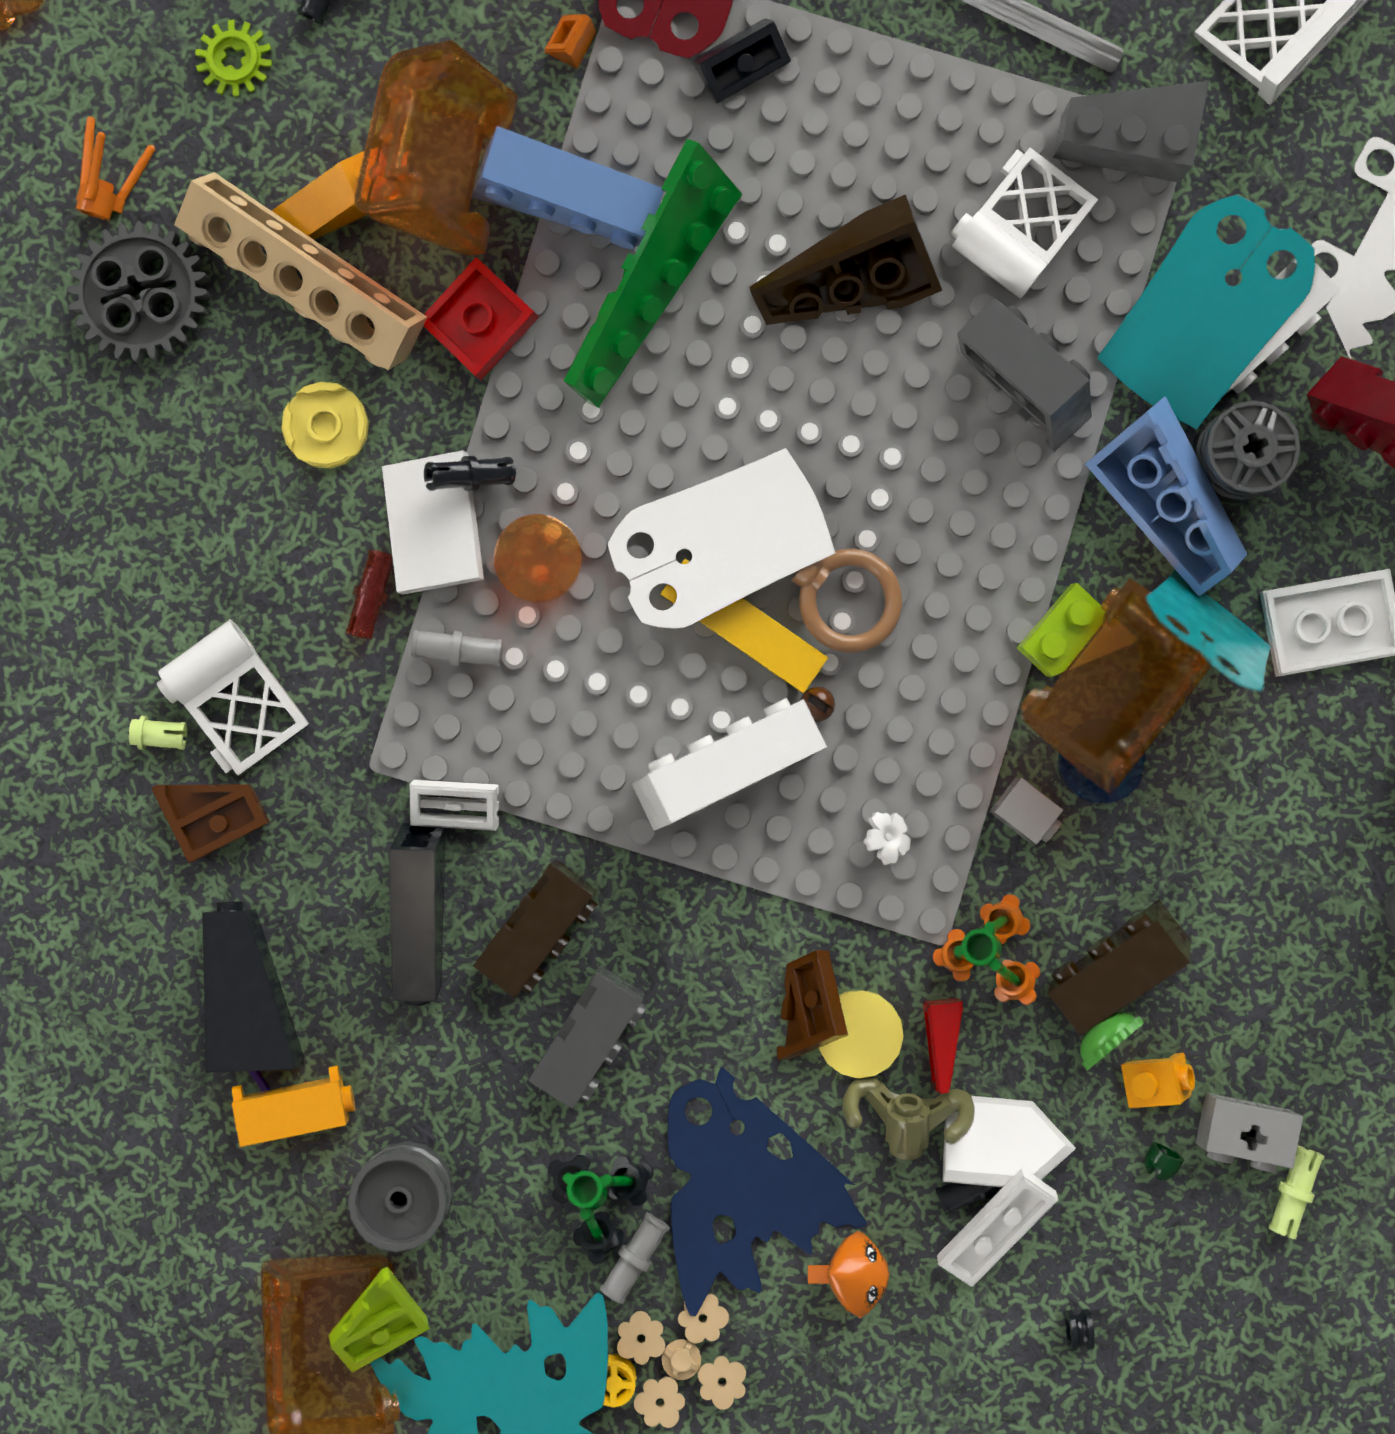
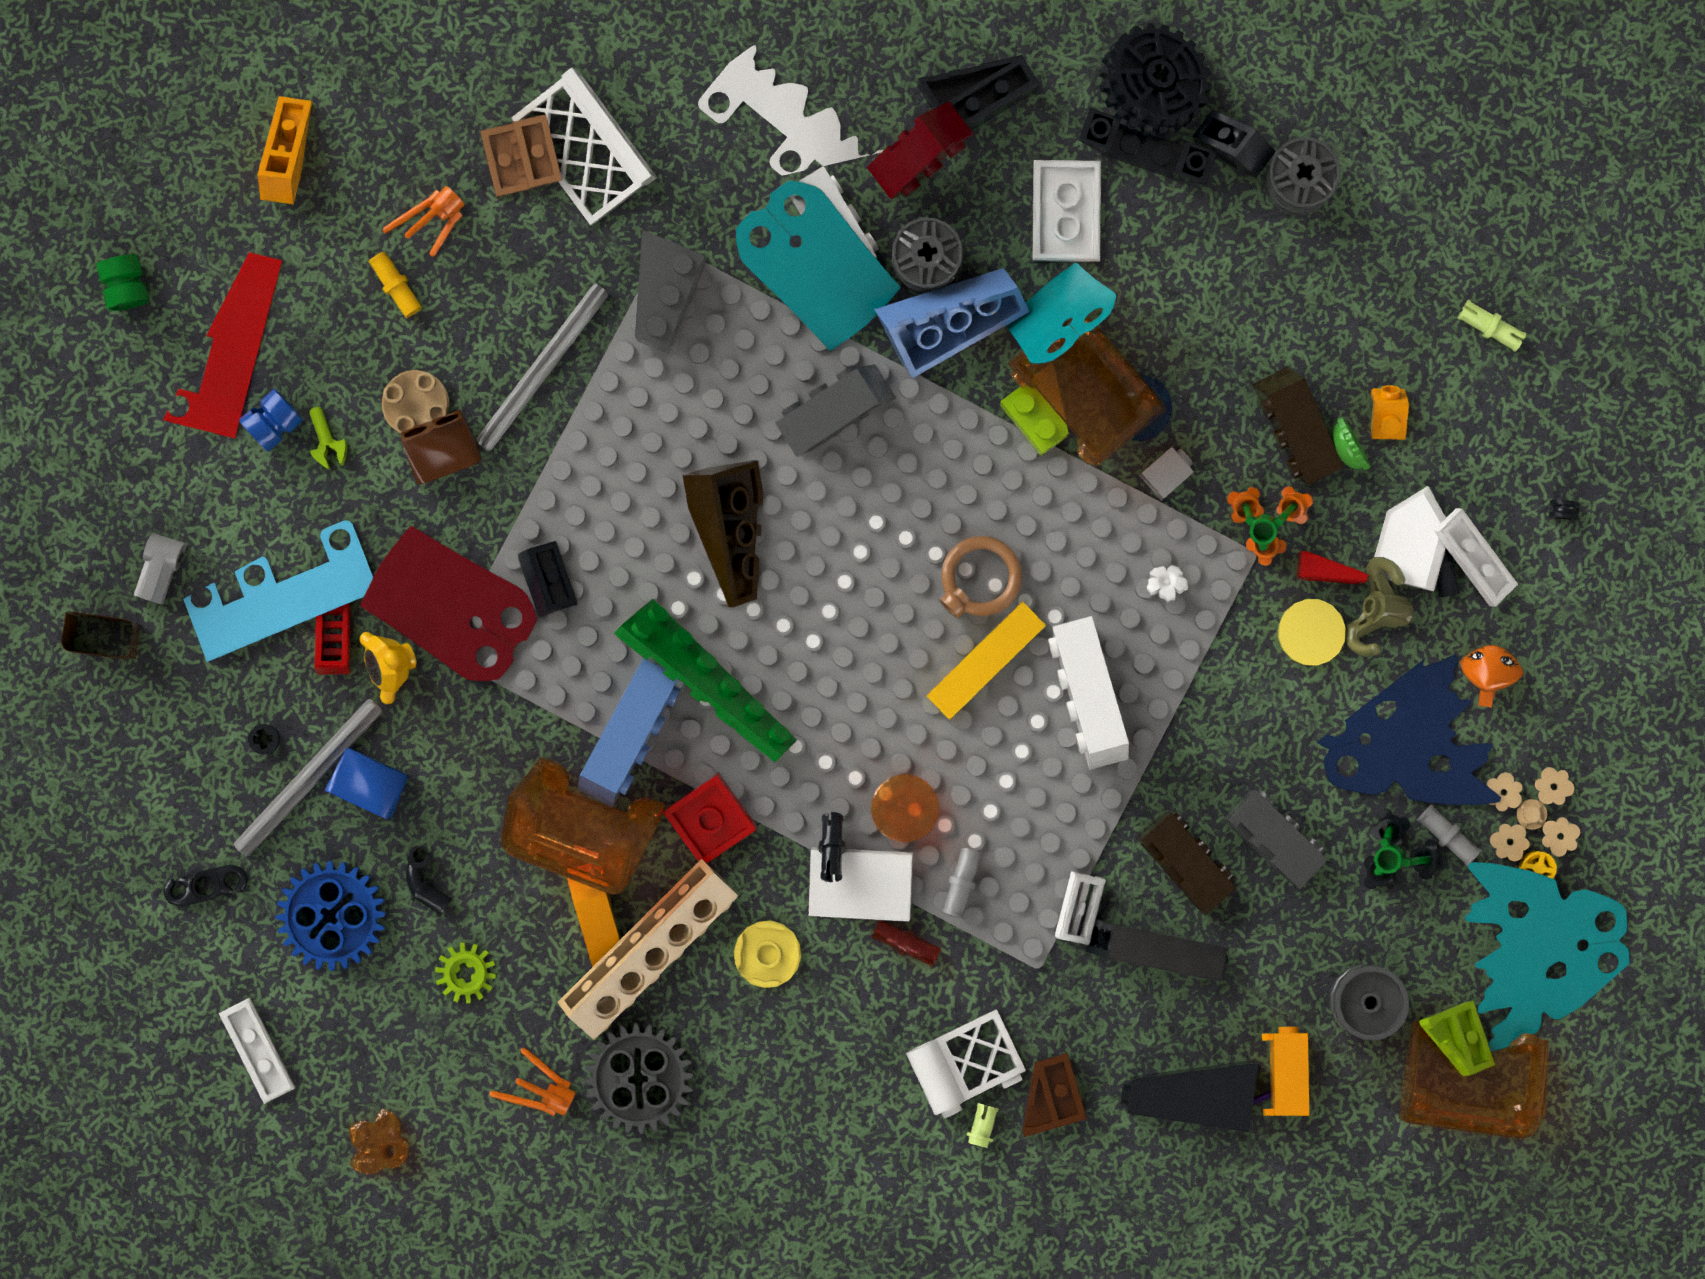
camera: 80 degrees left, 0 degrees up
(571, 39) = (502, 708): orange slope -> none
(741, 537) = (915, 648): white piece -> none
(811, 1006) = (1283, 665): reddish brown wing -> none
(822, 695) = (1050, 610): reddish brown hinge -> none
(997, 243) = (732, 410): white piece -> none
(1166, 1164) = (1451, 423): dark green hinge -> none
(1274, 1137) = (1424, 366): light grey brick -> none

